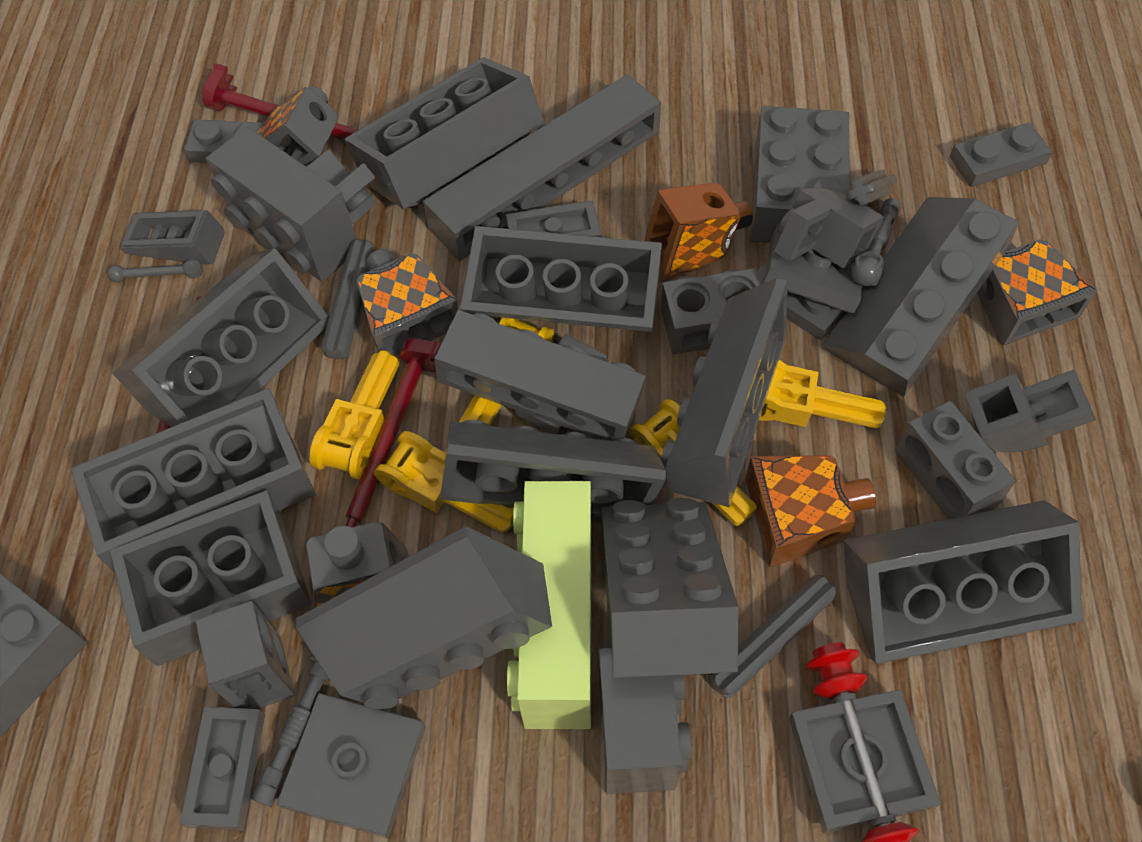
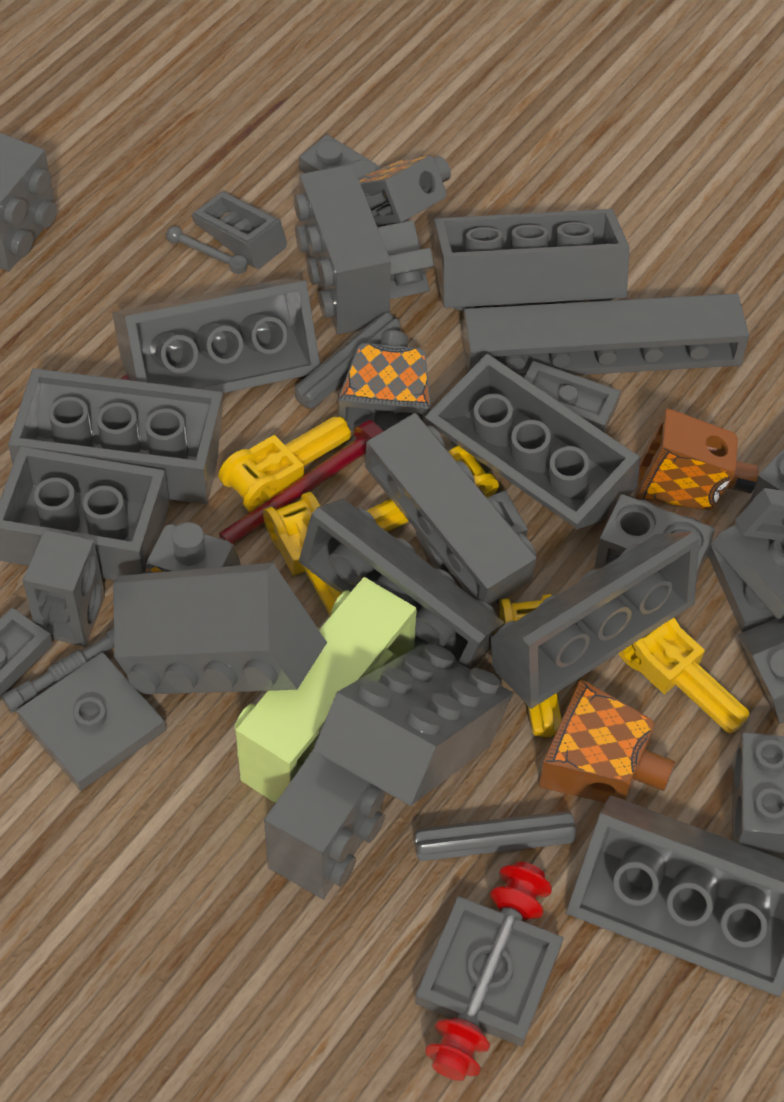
camera: 30 degrees right, 5 degrees down
(219, 93) = (366, 121): dark red piece -> none

